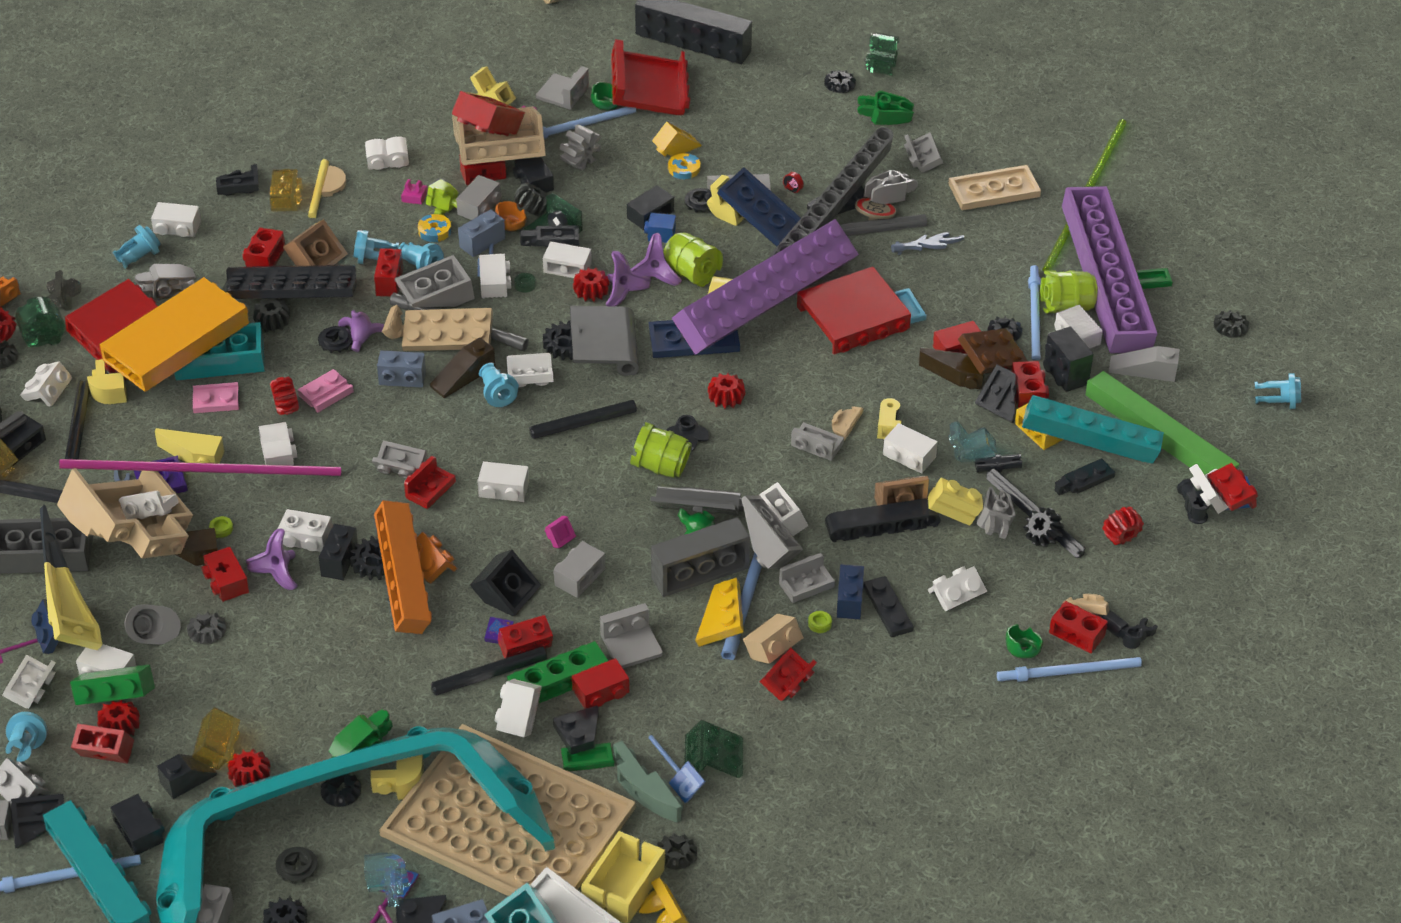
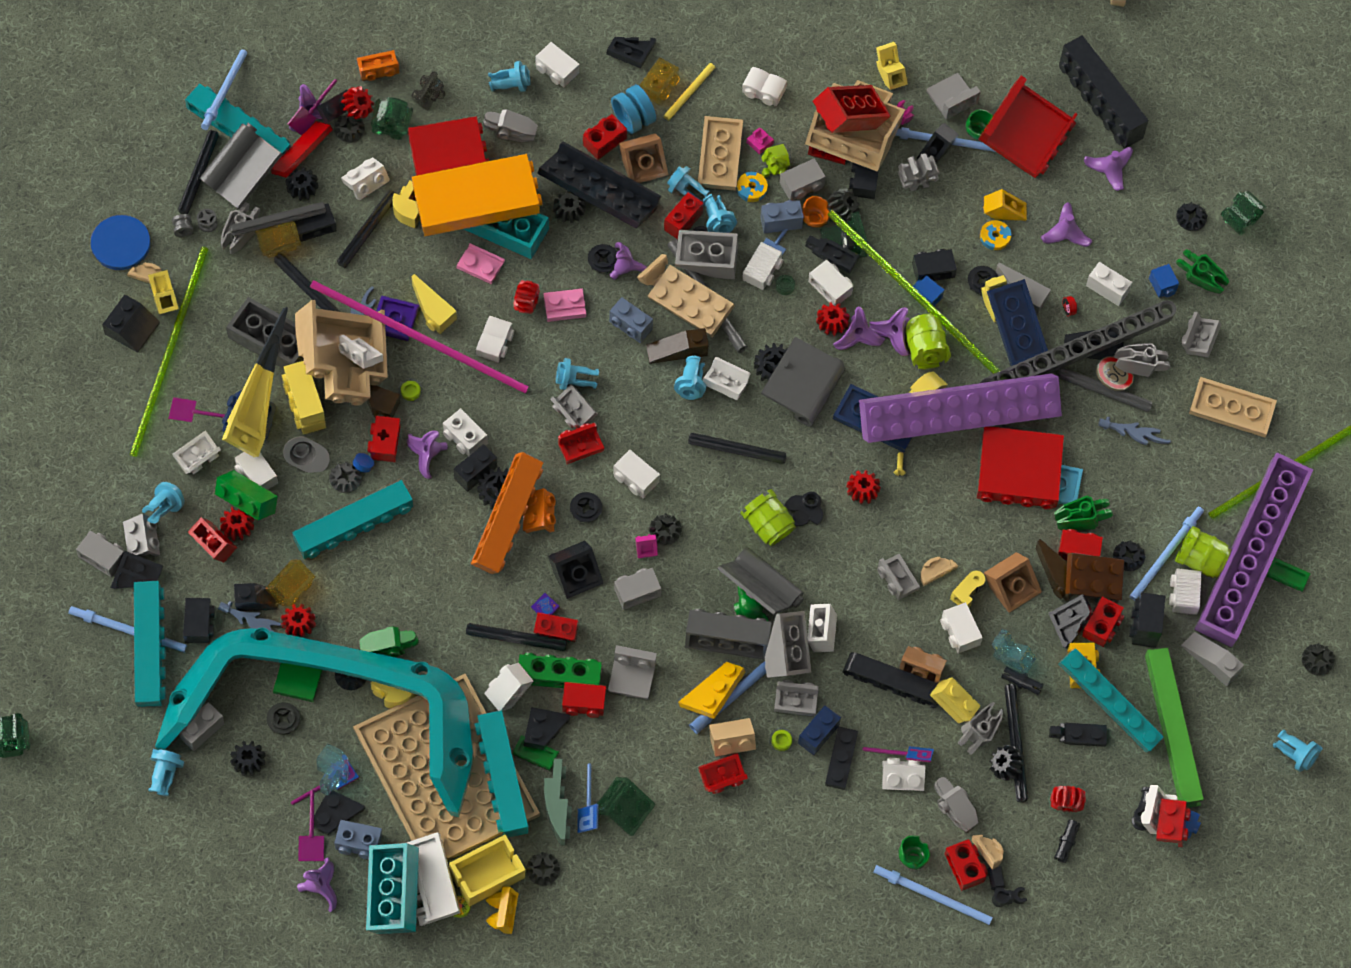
camera: 30 degrees right, 20 degrees up
(114, 575) = (303, 398): none -> light yellow piece
(192, 794) = (250, 617): none -> sand blue piece
(217, 605) = (363, 462): none -> blue tile
(242, 655) = (353, 519): none -> teal brick
(279, 211) = (633, 109): none -> dark azure wheel
(285, 821) = (297, 681): none -> green tile
(334, 181) = (705, 92): tan tile -> none
(372, 434) = (567, 373): none -> medium azure piece
(385, 214) = (720, 153): none -> tan plate
(480, 526) = (581, 500): none -> black gear
(572, 783) = (502, 774): none -> teal brick
(576, 515) = (662, 536): none -> pearl dark grey gear
(581, 115) = (939, 142): none -> black slope
(642, 226) = (913, 292): none -> clear neon green piece
(742, 77) = (1111, 166): none -> medium lavender piece
(742, 132) = (1066, 229): none -> medium lavender piece
(748, 365) = (899, 471): none -> light yellow piece
(813, 151) = (1109, 284): none -> white brick
(857, 129) = (1164, 281): none -> blue brick
(923, 393) = (1013, 581): none -> medium nougat slope
(939, 314) = (1082, 514): none -> green hinge
(948, 567) = (913, 753): none -> magenta piece
(1026, 583) = (956, 804): none -> light grey hinge
(1150, 561) = (1067, 841): none -> black pin

